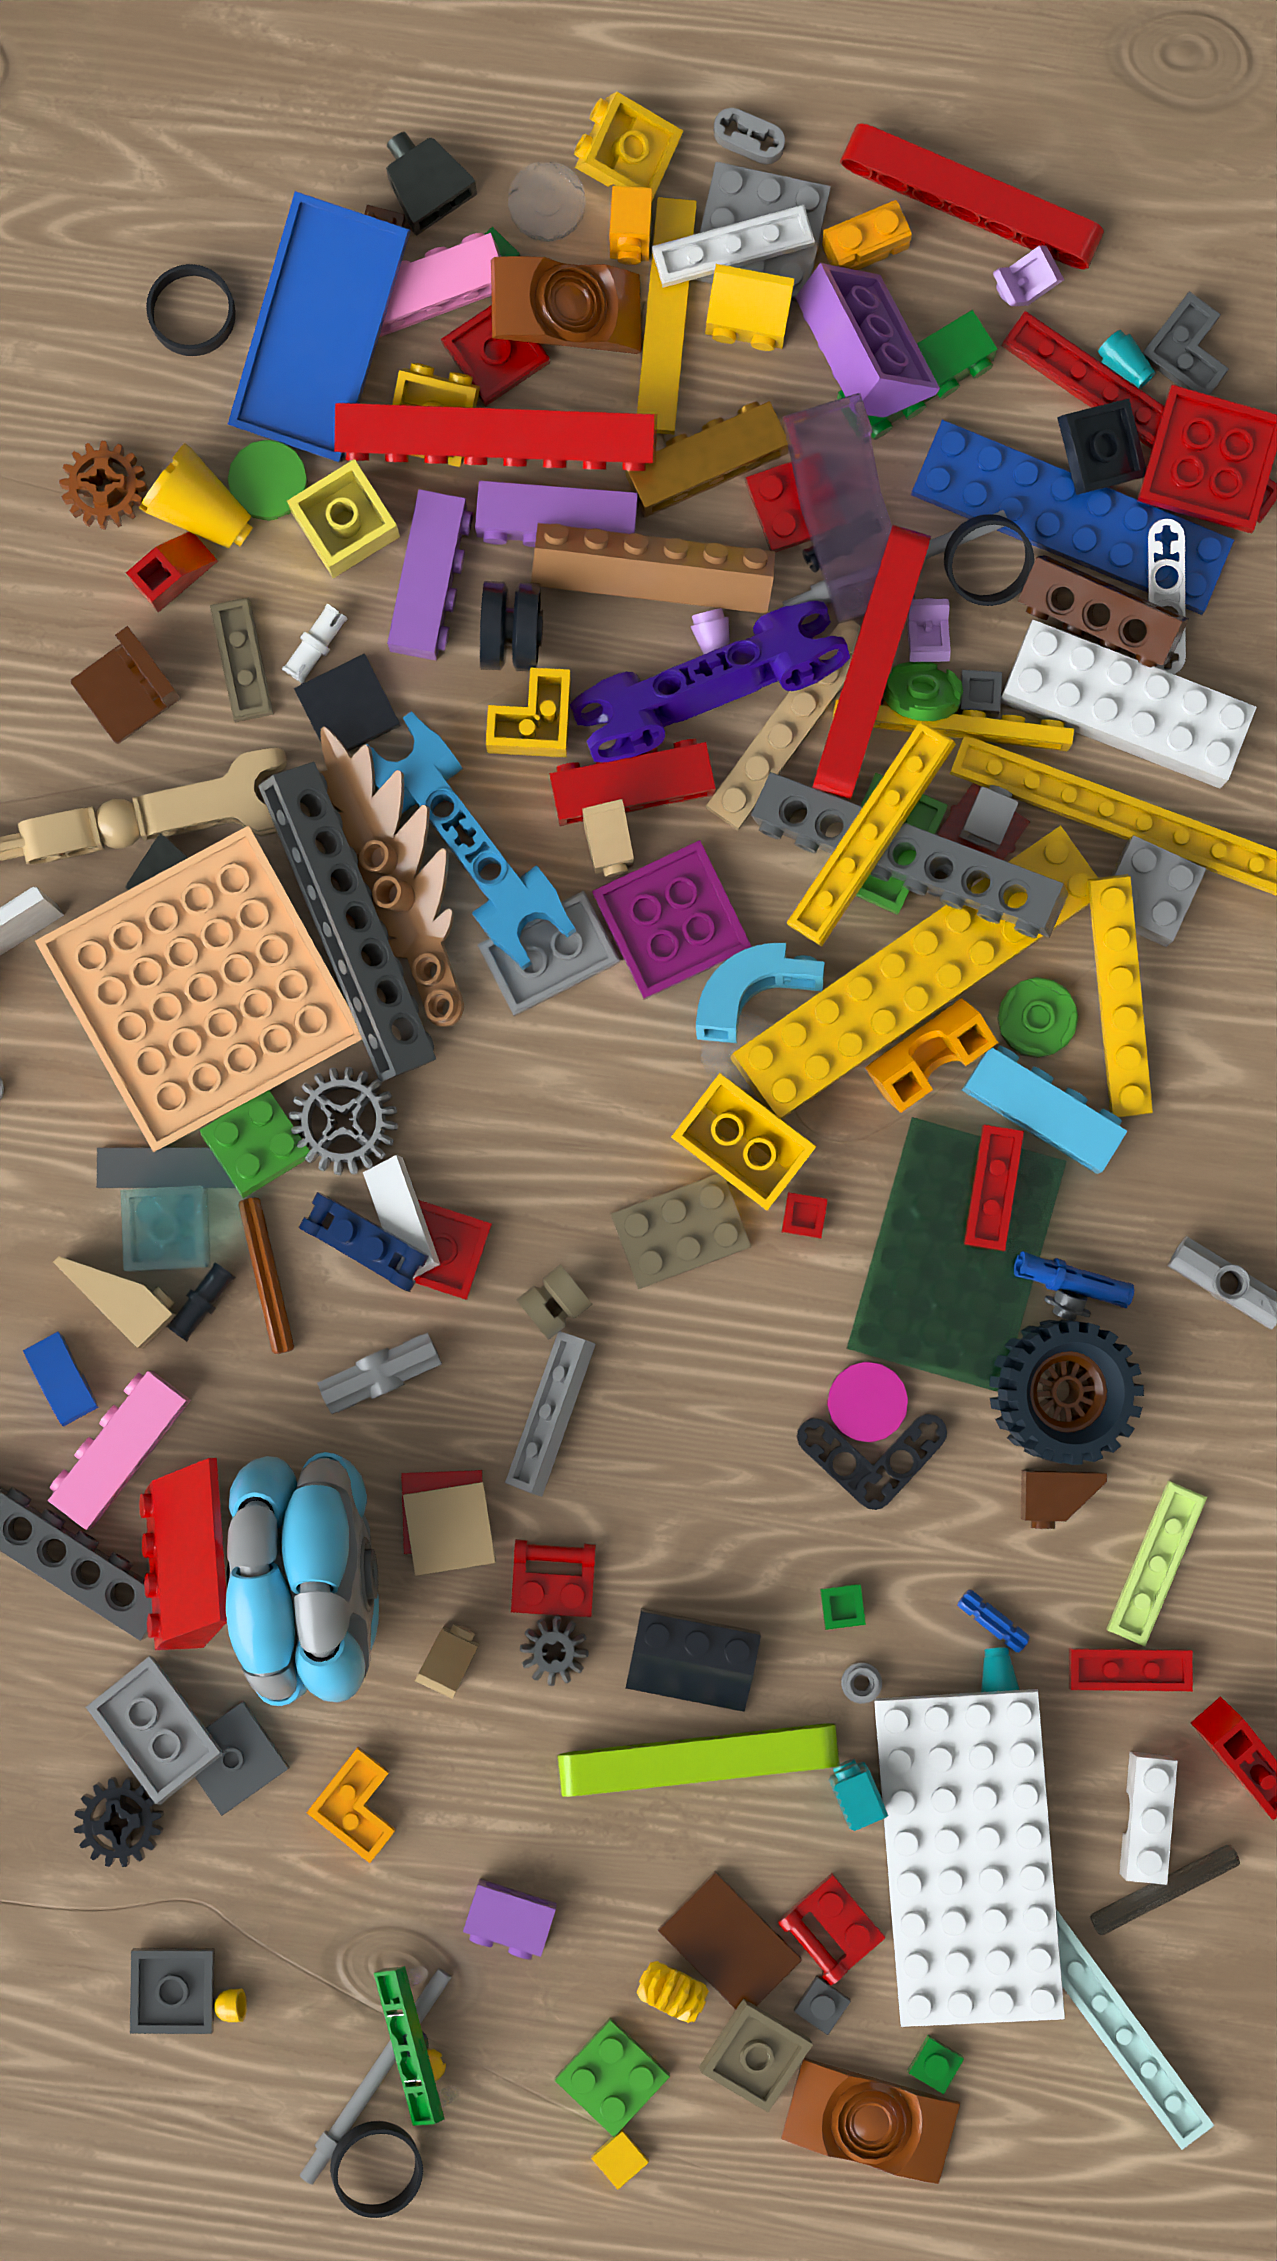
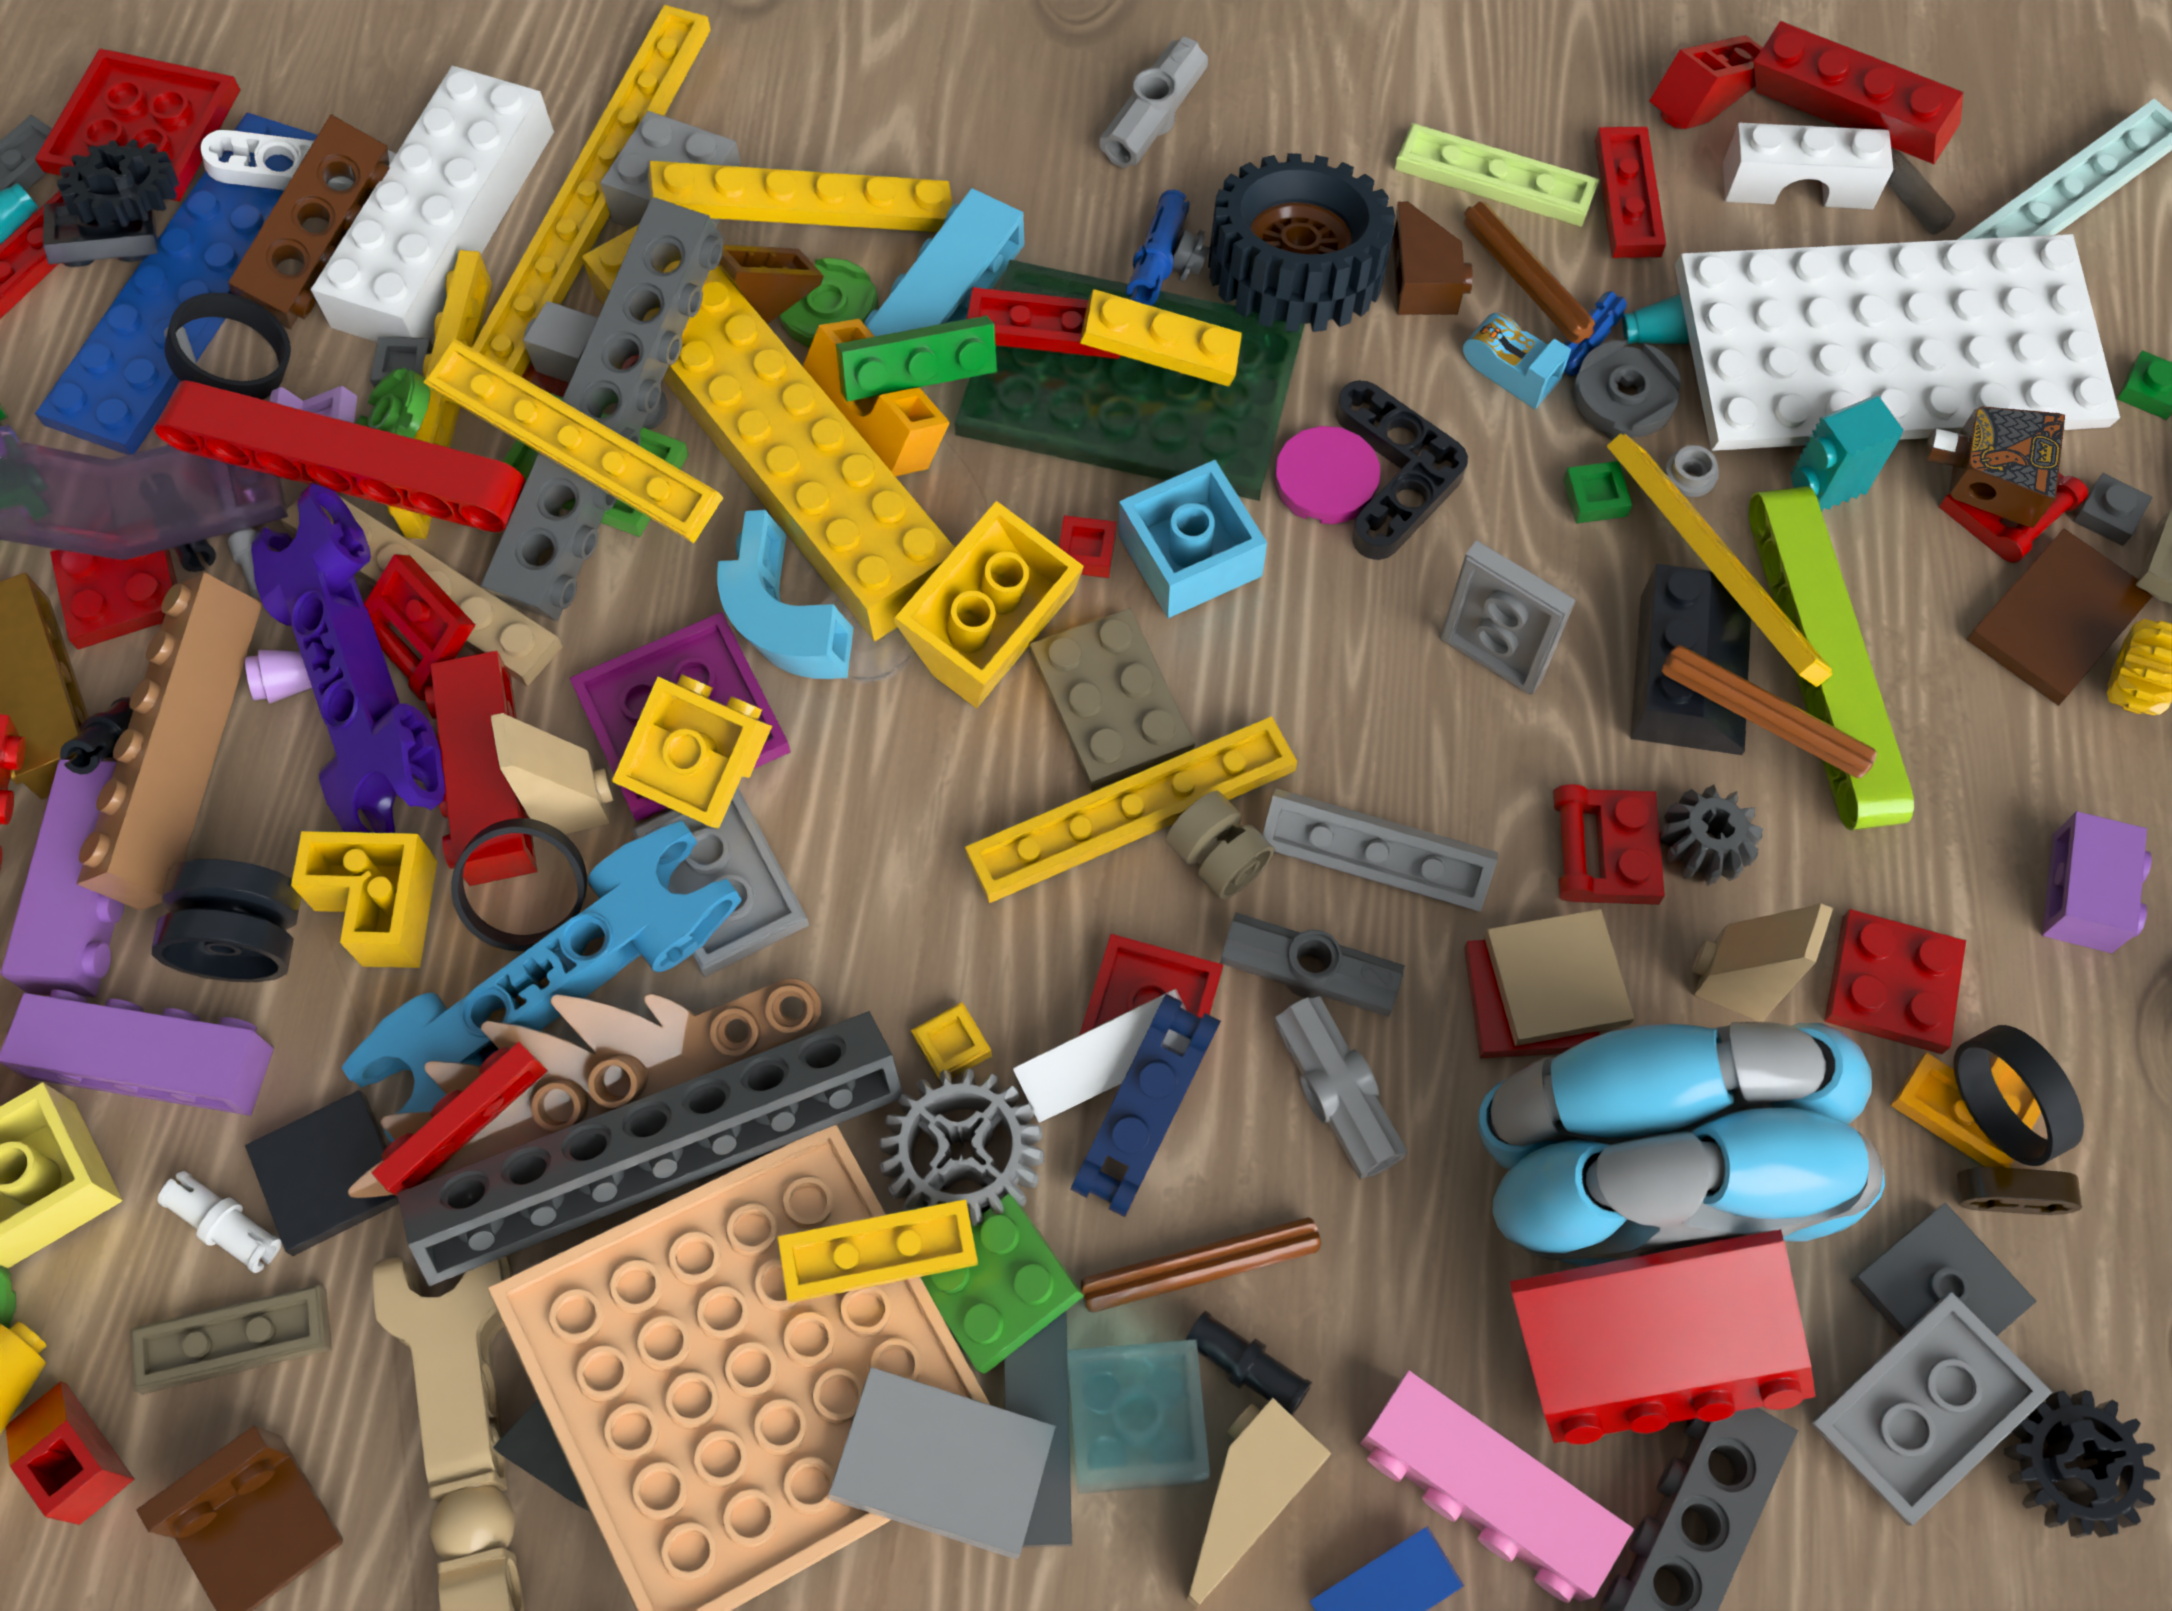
camera: 90 degrees left, 20 degrees down
(141, 1108) = (943, 1463): none -> light grey tile
(269, 1067) = (877, 1251): none -> yellow plate
(293, 1818) = (2019, 1191): none -> dark brown beam
(340, 1814) = (2044, 1080): none -> black tyre
(362, 796) = (458, 1119): none -> red plate
(422, 1114) = (951, 1042): none -> yellow tile
(446, 1766) = (1896, 981): none -> red plate
(457, 1386) = (1349, 973): none -> dark grey piece
(503, 819) = (480, 928): none -> black tyre
(588, 1242) = (1128, 809): none -> yellow plate
(629, 932) = (692, 749): none -> yellow plate
(631, 1696) = (1769, 711): none -> dark orange axle
(657, 519) = (97, 737): none -> black pin
(709, 1515) = (1505, 617): none -> light grey tile
(744, 728) = (422, 615): none -> red plate
(771, 1684) = (1721, 561): none -> yellow tile
(800, 1292) = (1191, 538): none -> medium azure brick
(846, 1914) = (2003, 461): none -> torso
(932, 1665) = (1615, 412): none -> dark grey plate
(952, 1088) = (916, 358): none -> green plate
(967, 1556) = (1516, 358): none -> medium azure leg
(972, 1276) = (1161, 338): none -> yellow plate
(1047, 1575) = (1529, 272): none -> dark orange axle
(1049, 968) = (770, 277): none -> reddish brown slope
(1147, 471) = (118, 183): none -> black gear
(1209, 1865) = (1858, 91): none -> red brick

